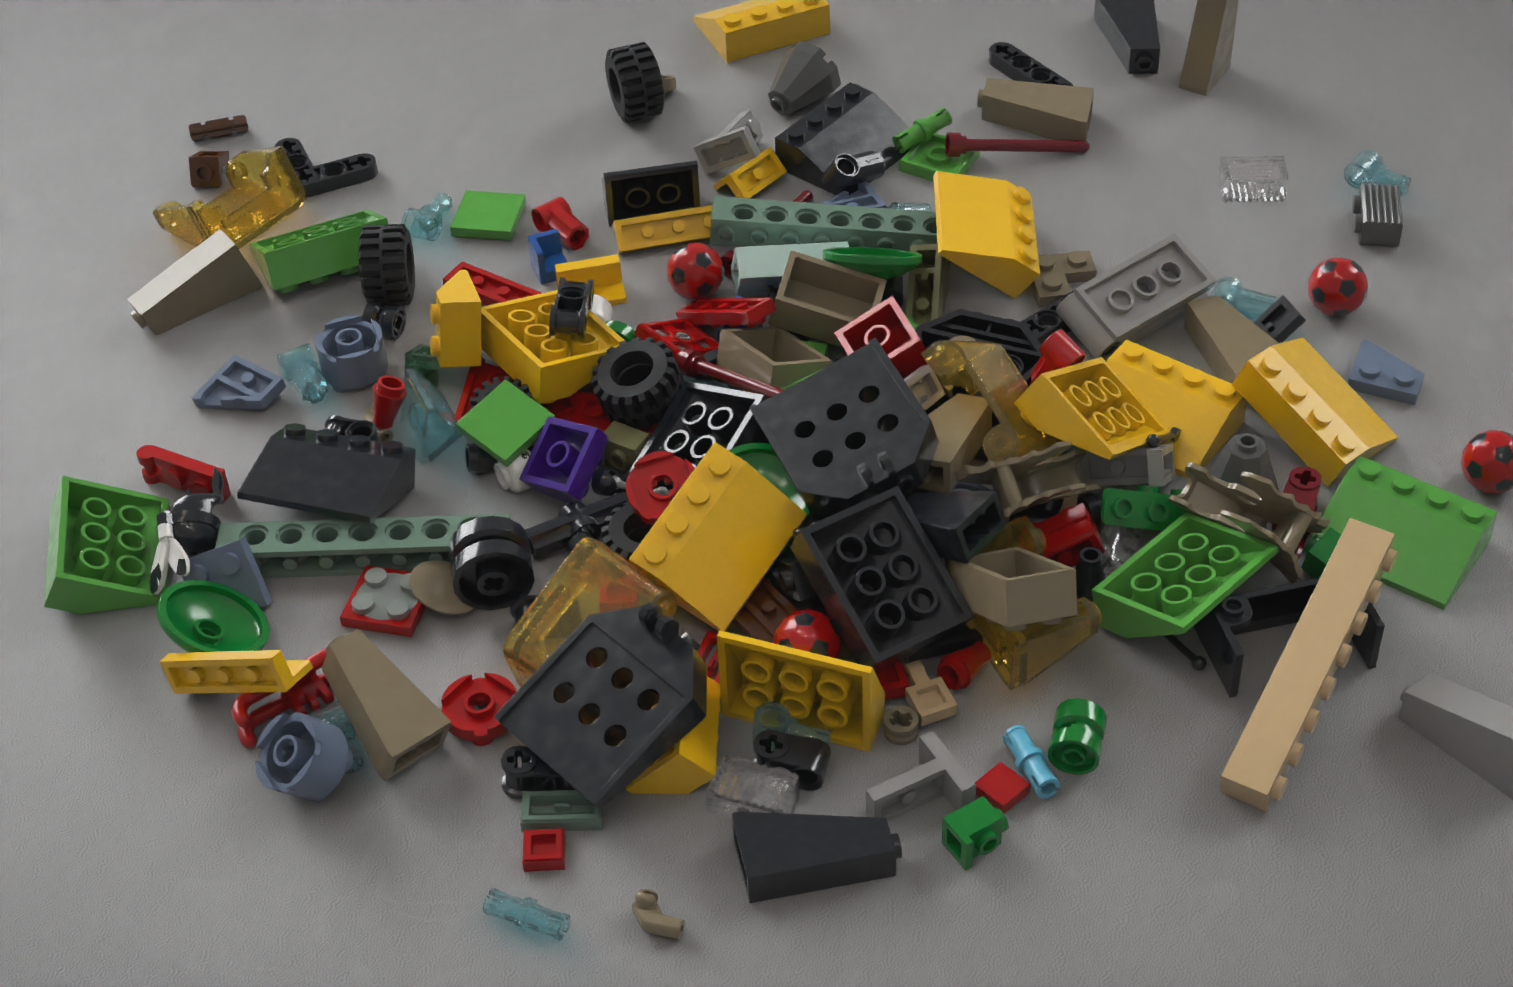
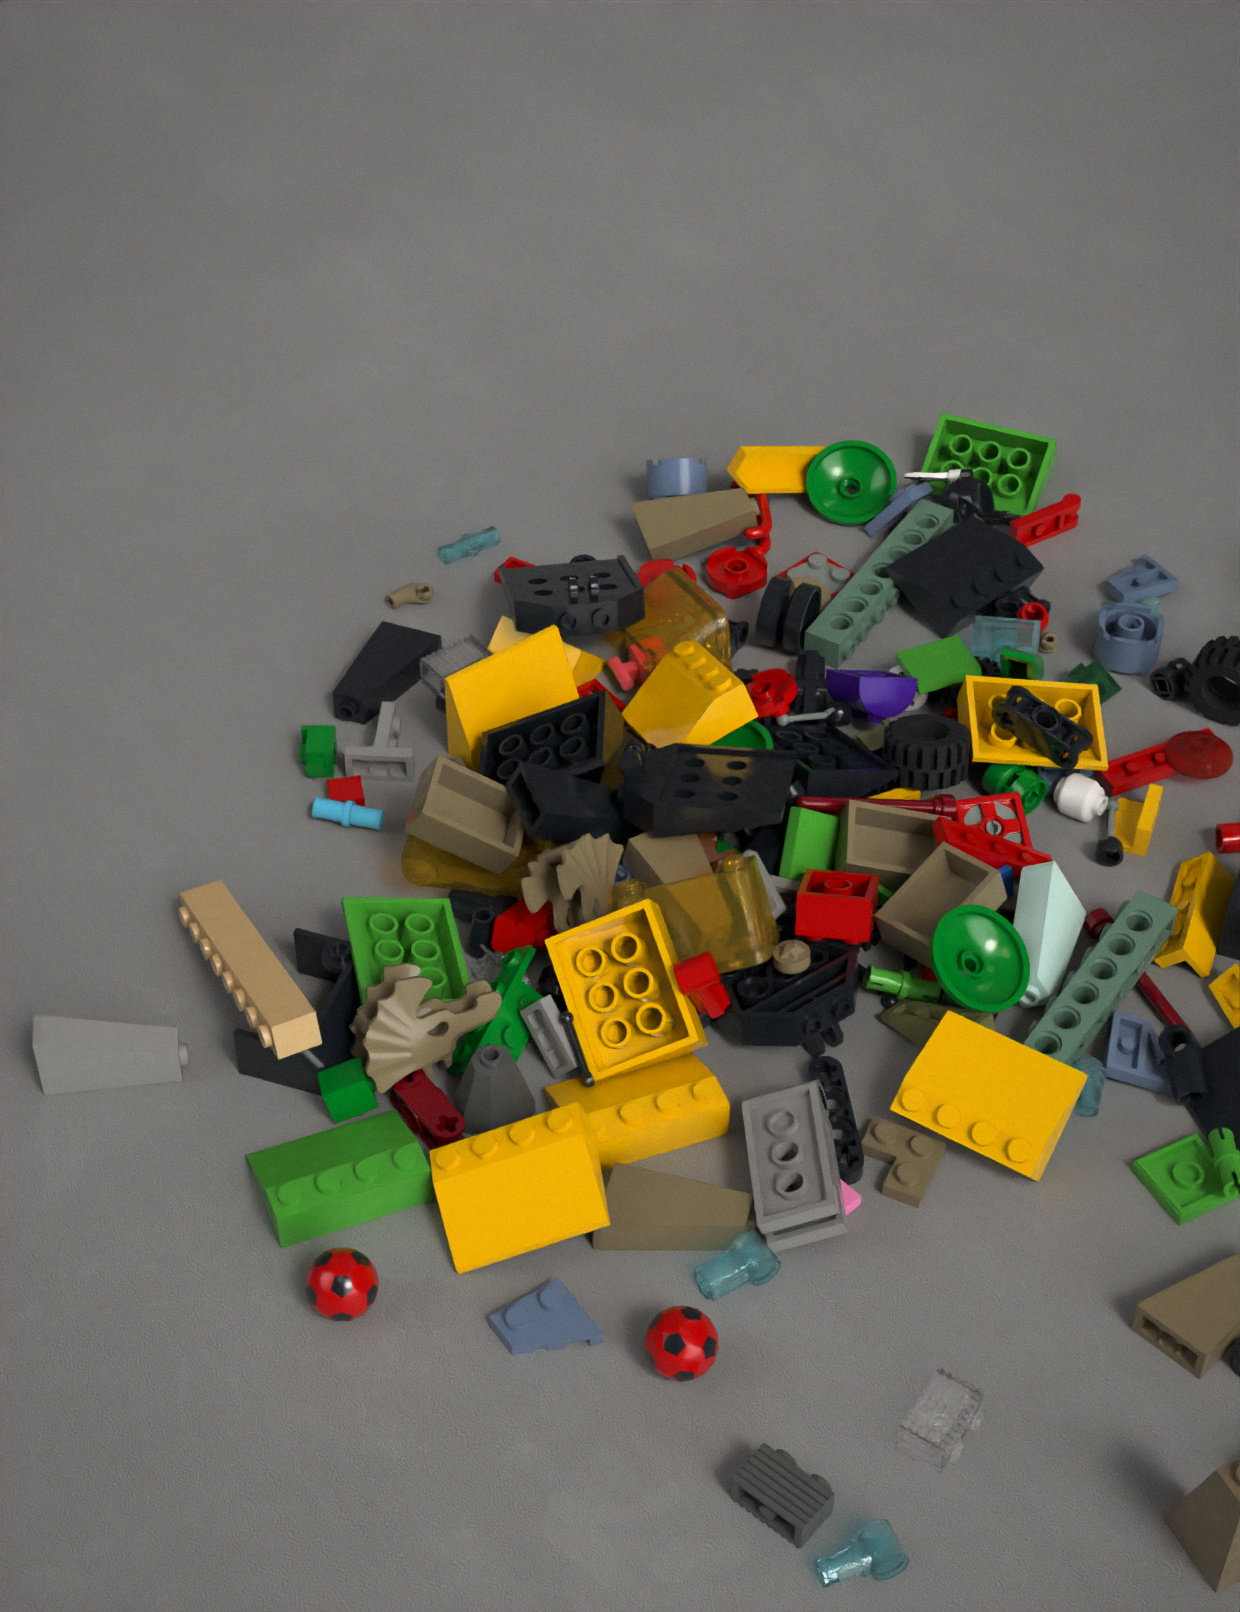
camera: 120 degrees right, 0 degrees up
(427, 645) = (736, 571): none -> red plate
(457, 323) = (1124, 692): yellow slope -> none
(486, 355) = (1021, 664): none -> green slope
(489, 269) = (1198, 755): none -> clear red dish
(544, 253) = (1195, 803): blue panel -> none
(638, 287) = (1105, 847): none -> black hinge
(695, 271) = (1090, 873): red piece -> none
(957, 144) = (1179, 1179): dark red piece -> none
(1077, 736) = (339, 839): green wheel -> none
(1280, 319) = (664, 1256): black bracket -> none

